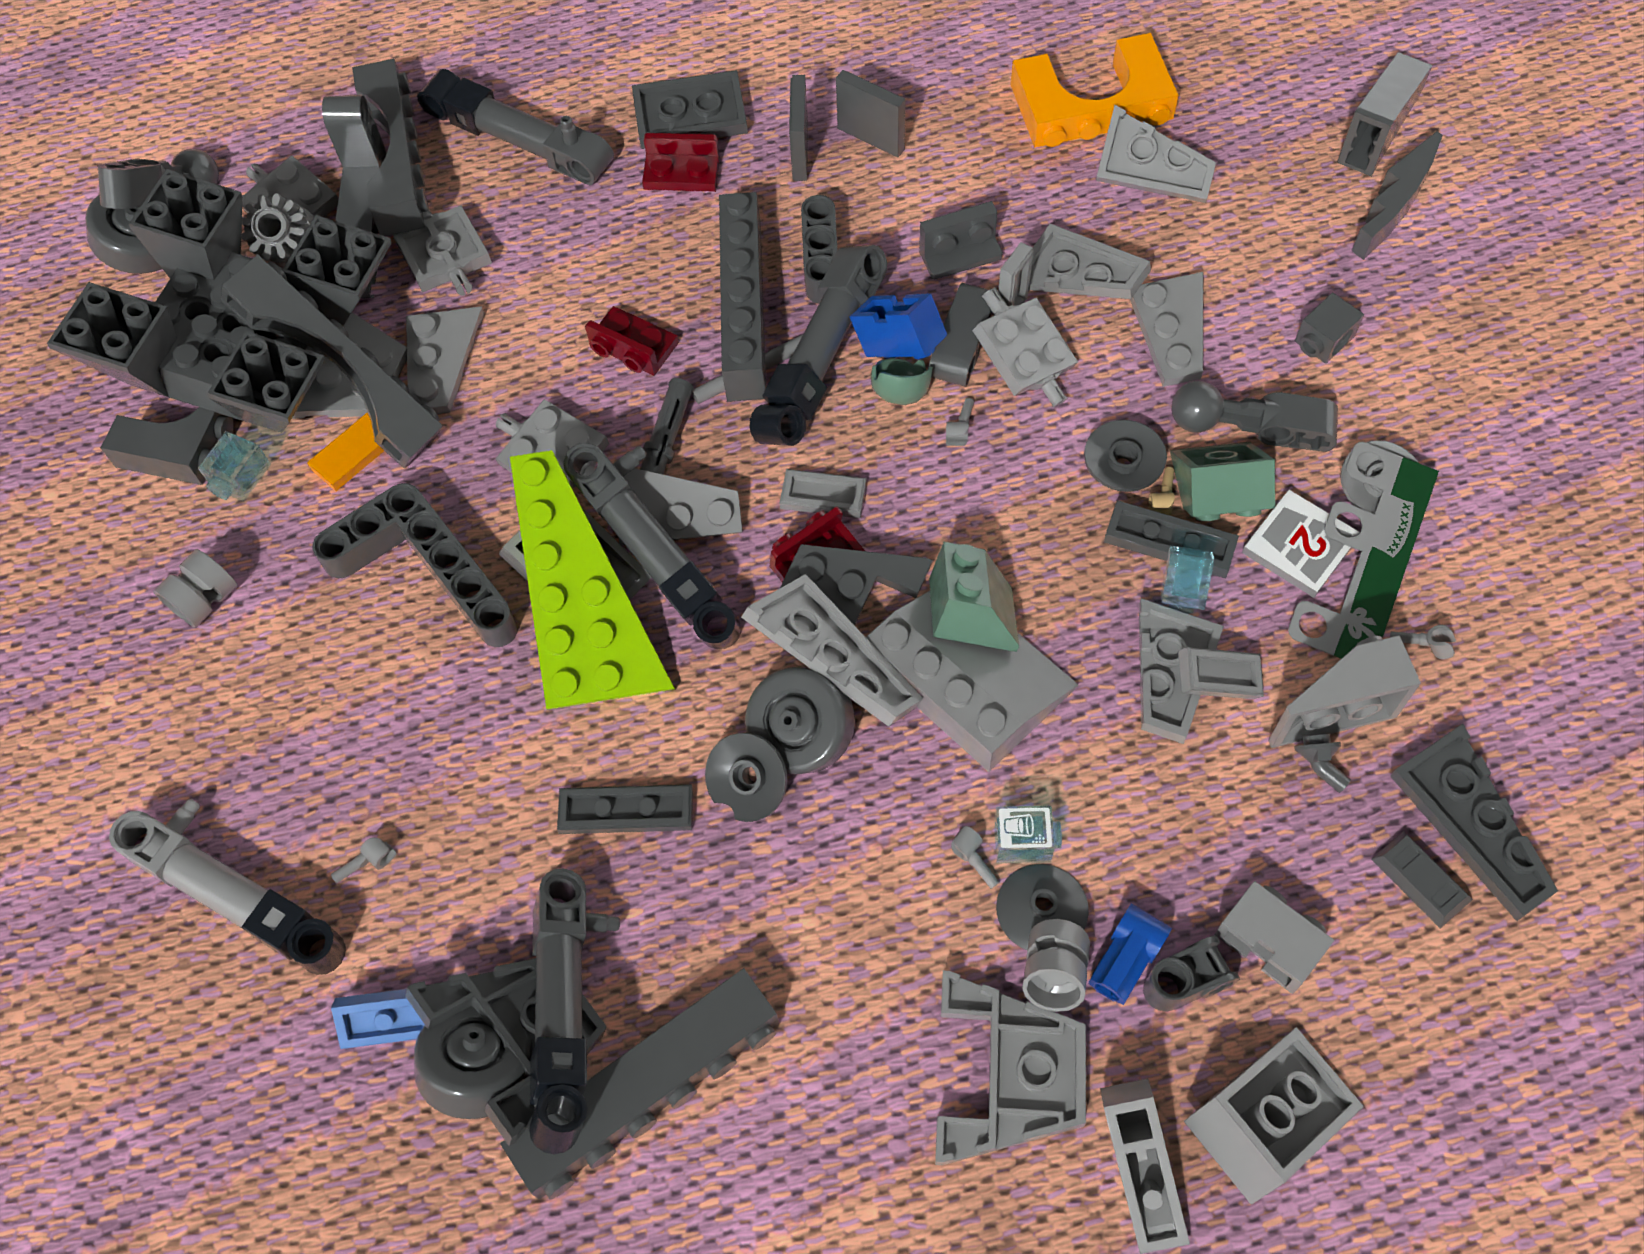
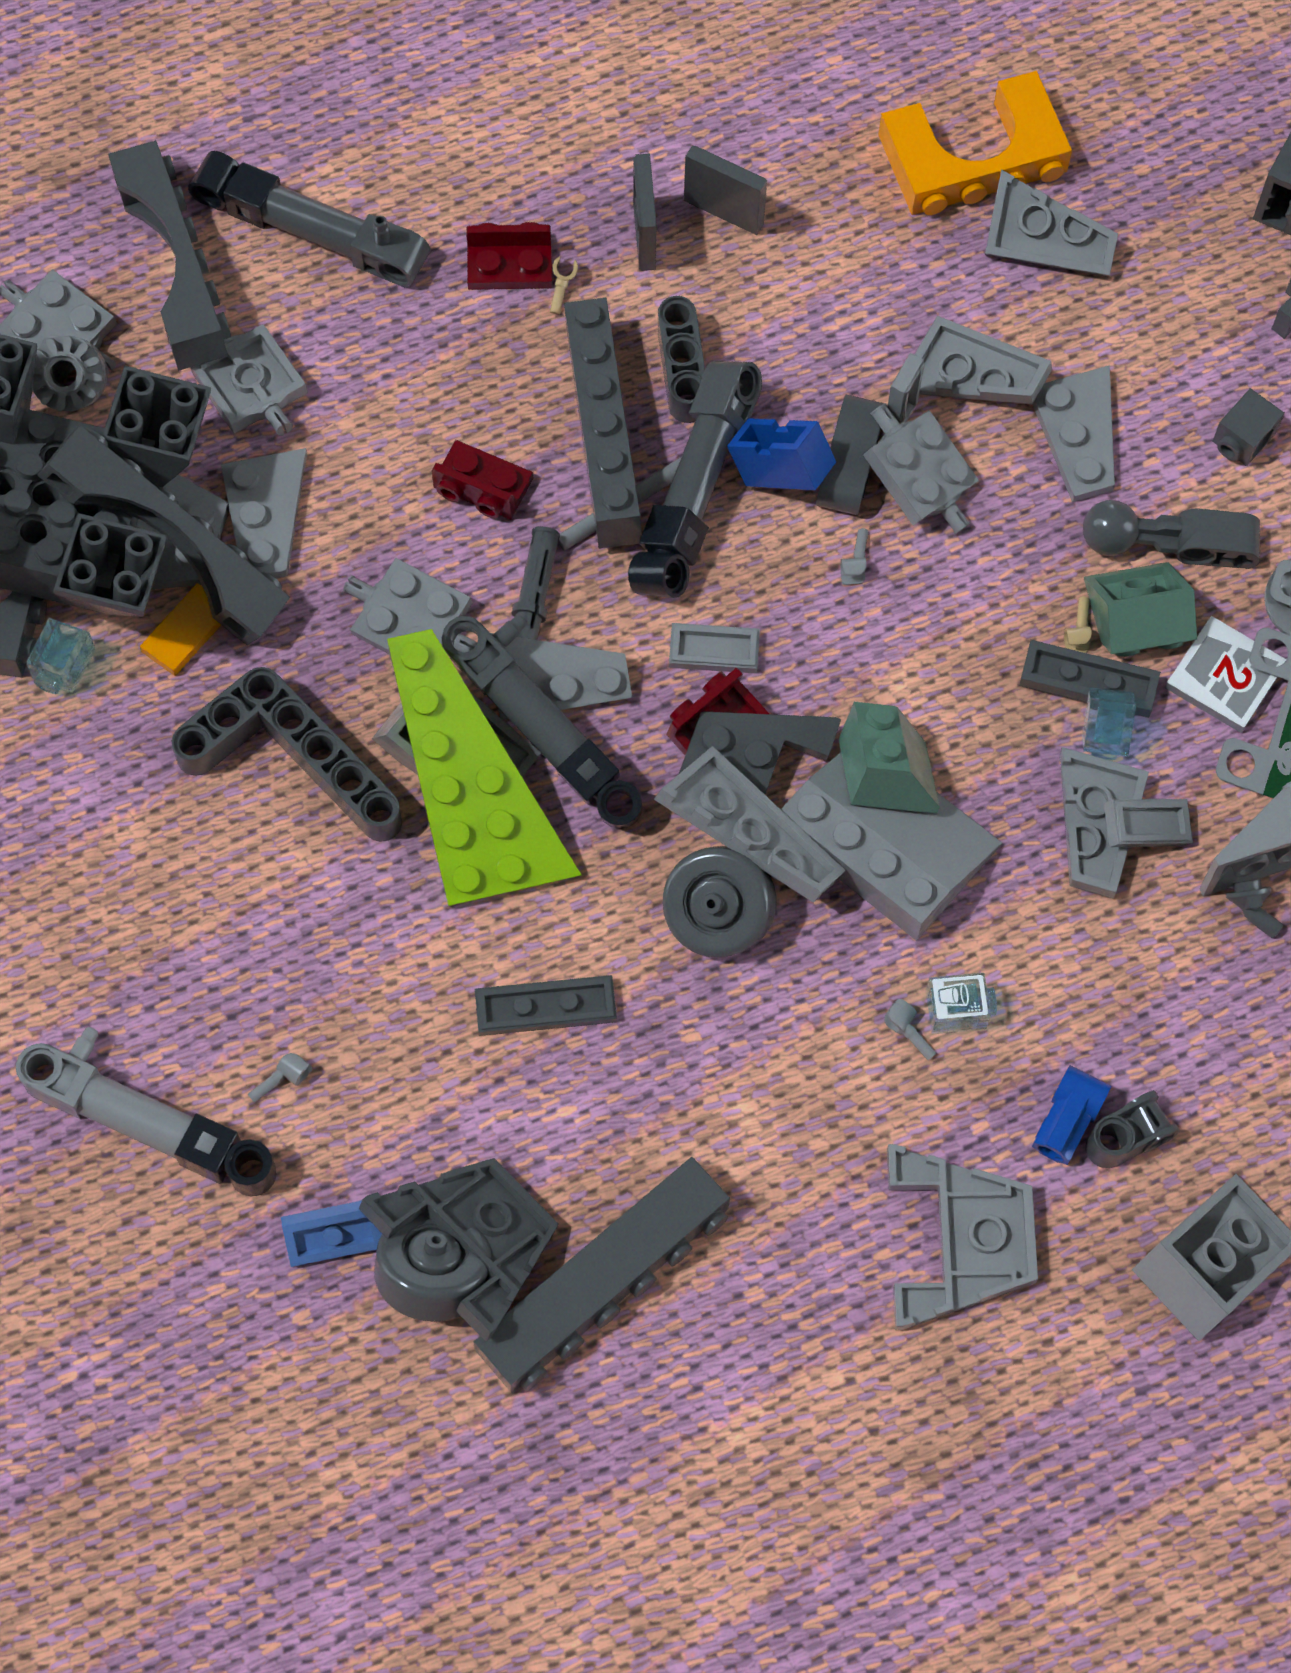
camera: 10 degrees left, 5 degrees up
(195, 588) = (47, 798): light grey wheel -> none
(361, 155) = (142, 290): dark grey beam -> none
(559, 1051) = (525, 1256): dark grey piece -> none
(691, 106) = (511, 184): dark grey plate -> none
(724, 184) = (560, 286): none -> tan hand
(729, 776) = (650, 969): dark grey dish -> none
(900, 380) = (787, 514): sand green hair -> none
(959, 240) = (838, 343): dark grey bracket -> none
(1018, 894) = (979, 1097): dark grey dish -> none
(1056, 965) = (1000, 1130): light grey wheel -> none
(1128, 441) = (1040, 570): dark grey dish -> none
(1144, 1166) = (1096, 1313): light grey slope -> none
(1276, 934) = (1212, 1085): light grey brick -> none

